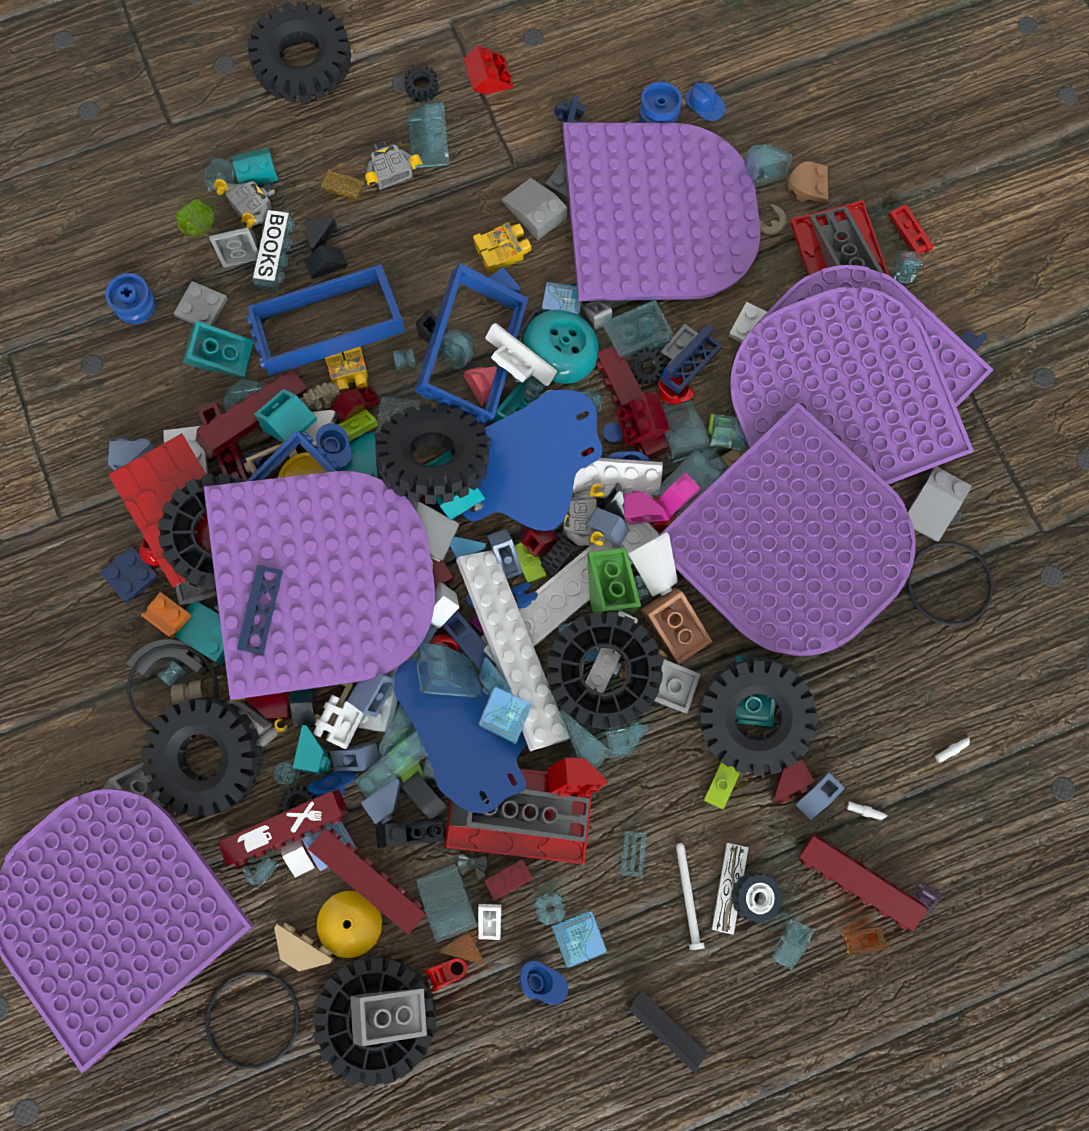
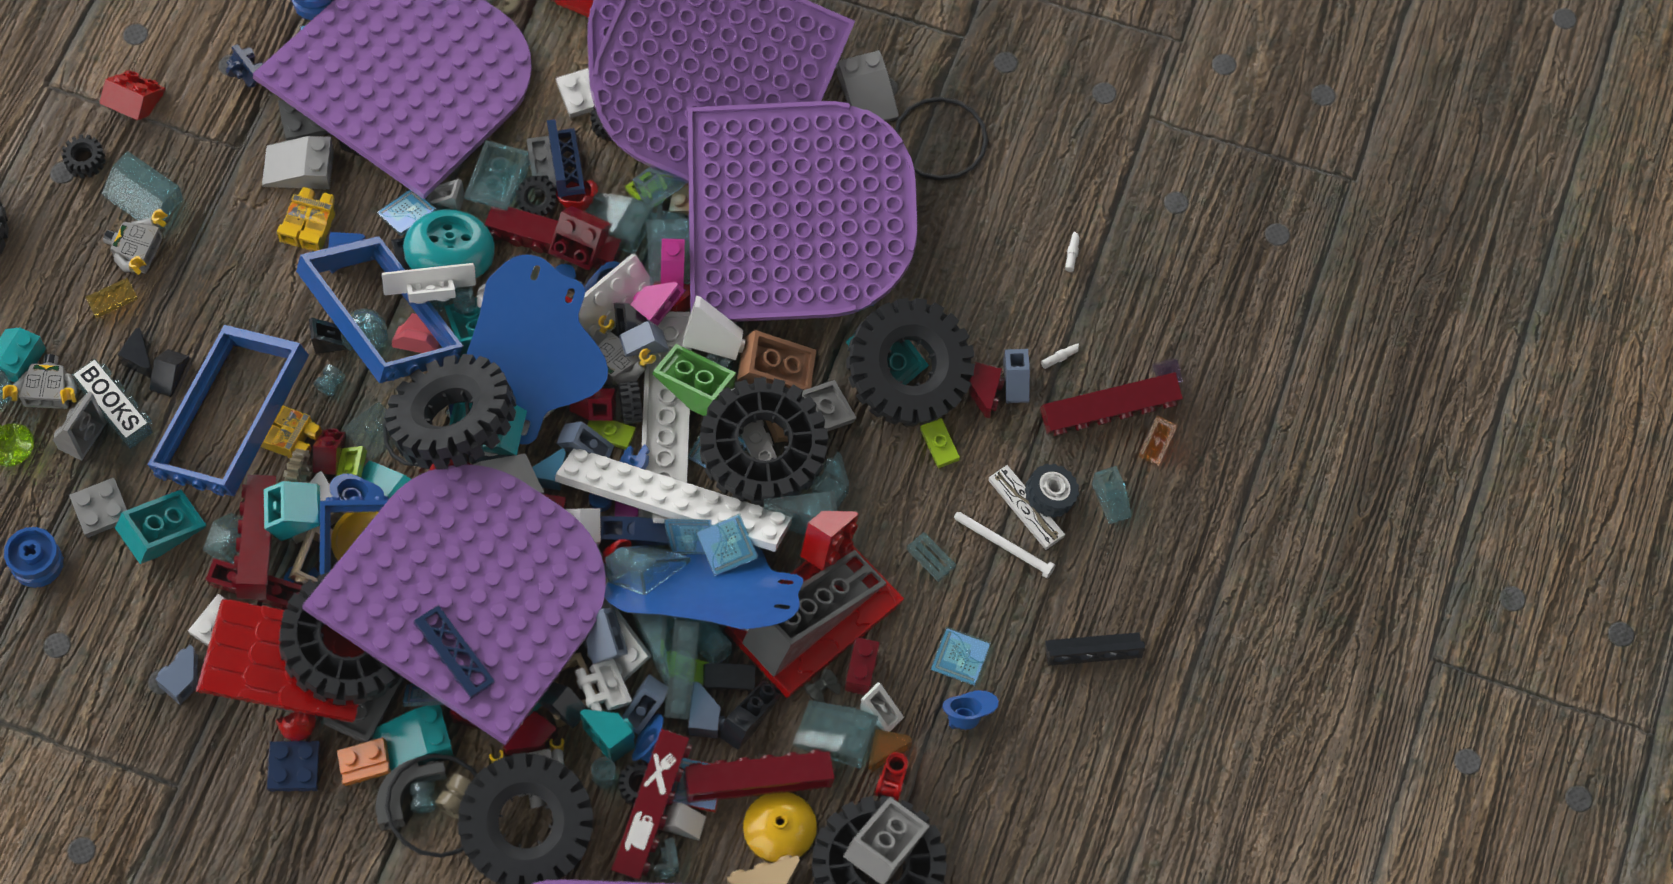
camera: 50 degrees left, 10 degrees down
(541, 905) = (911, 658): clear light blue brick -> none

